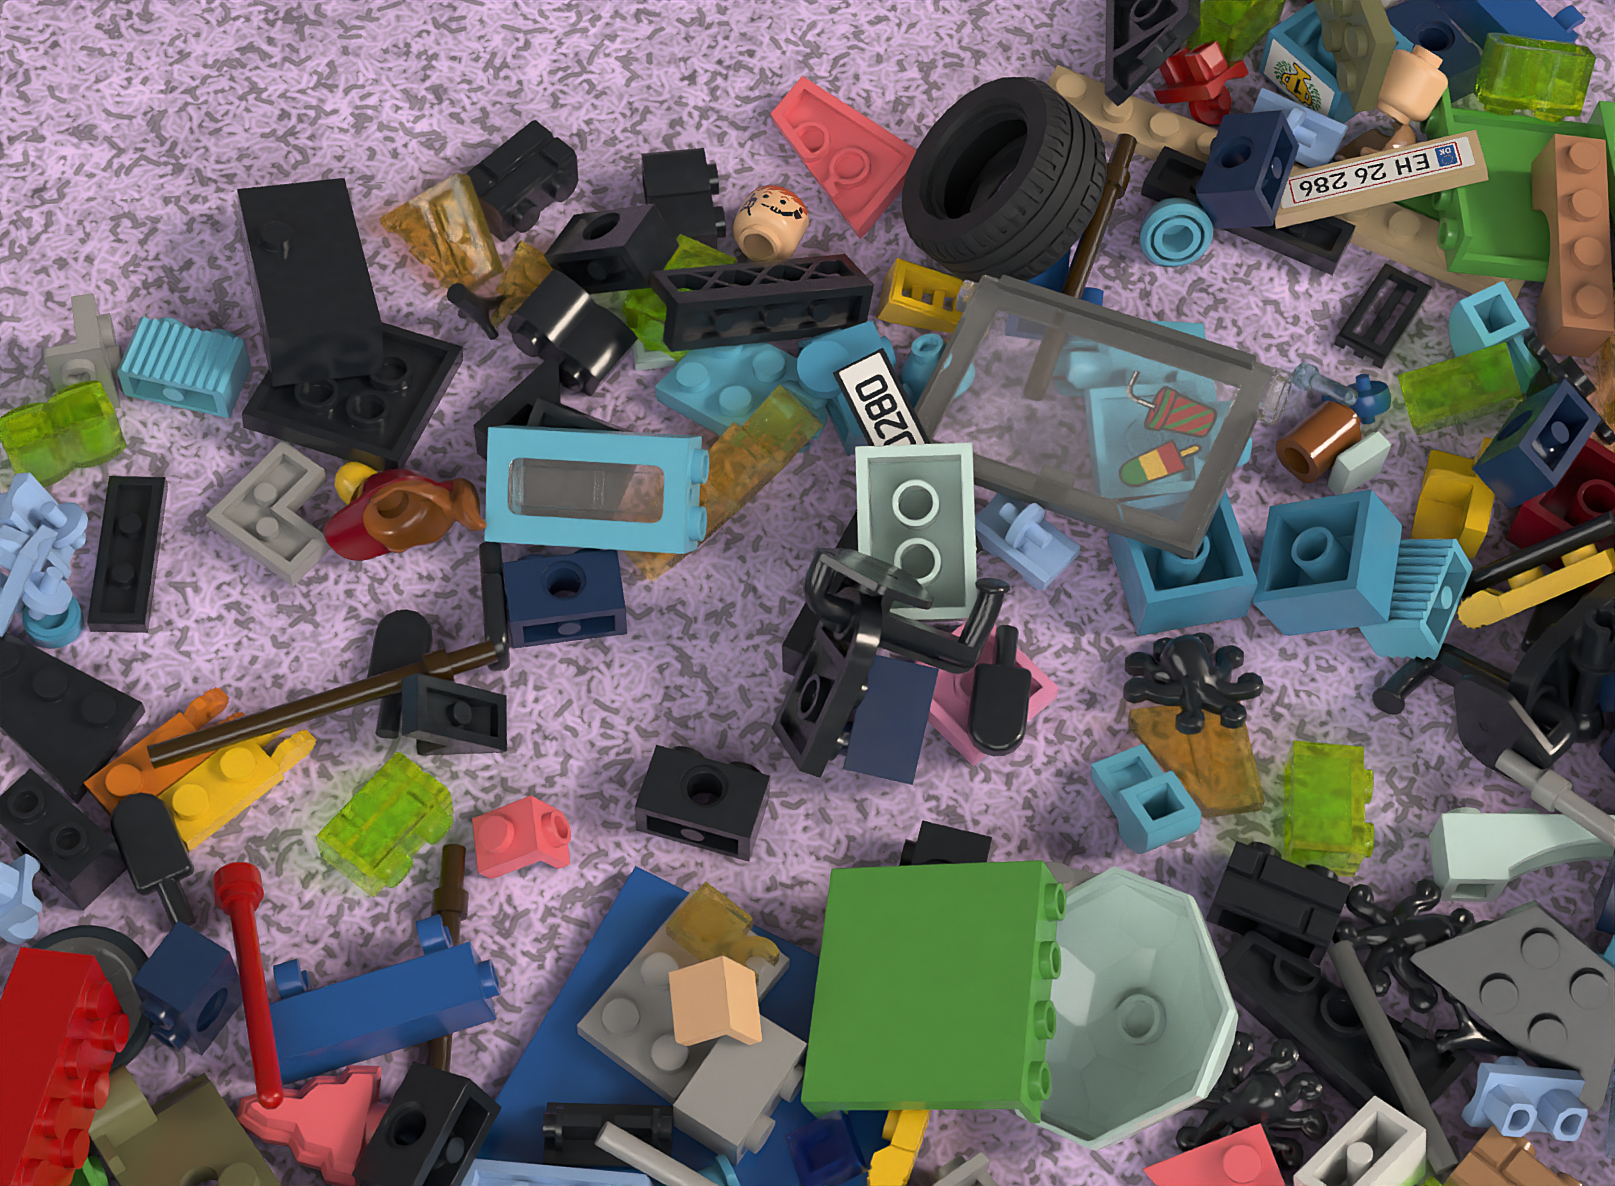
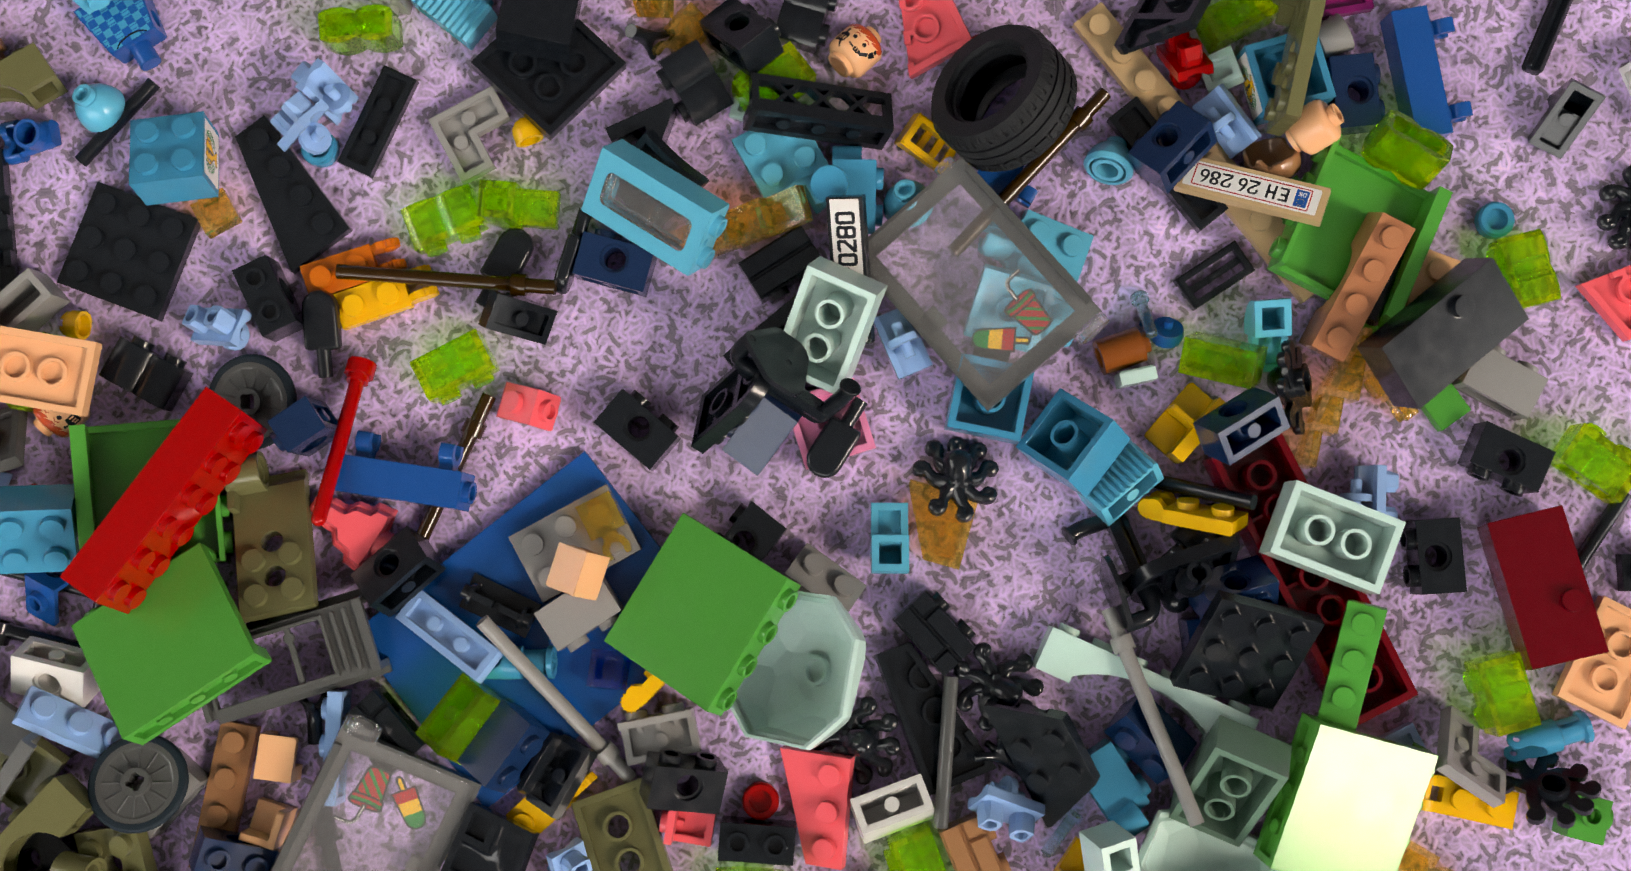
camera: 30 degrees right, 25 degrees up
(285, 636) = (444, 220): none -> clear neon green brick
(384, 578) = (513, 207): none -> clear neon green brick
(401, 512) = (544, 164): dark orange hair -> none
(802, 510) = (779, 265): none -> black brick
(1261, 74) = (1225, 70): none -> light aqua plate
(1326, 806) = (993, 589): clear neon green brick -> none

